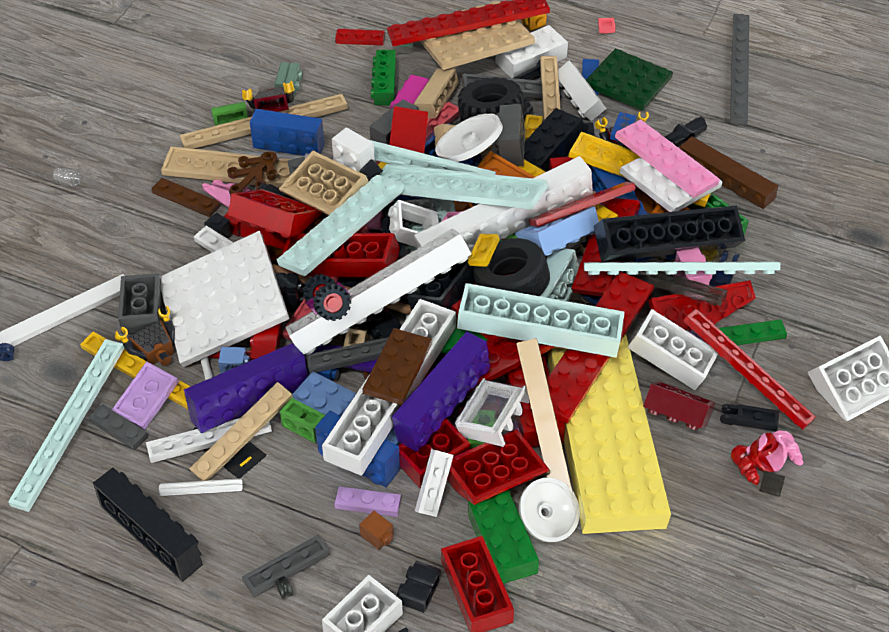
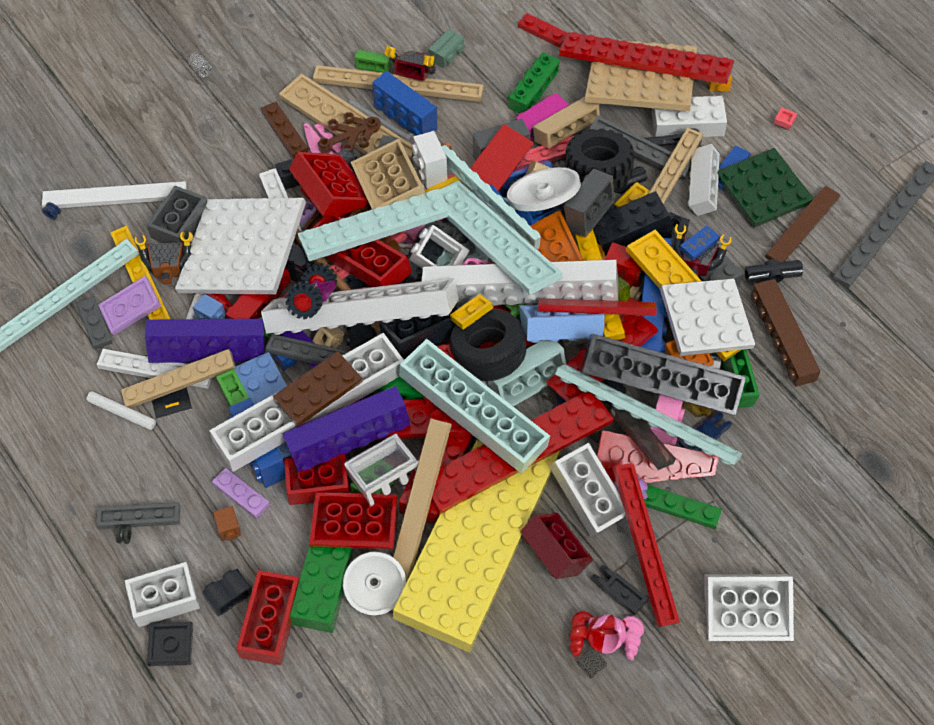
camera: 30 degrees right, 10 degrees up
(148, 523) = (55, 423): black brick -> none
(371, 169) = (436, 181): black slope -> none
(434, 483) = (295, 507): white plate -> none
(667, 158) = (713, 297): bright pink plate -> none
(679, 93) = (803, 225): none -> reddish brown tile

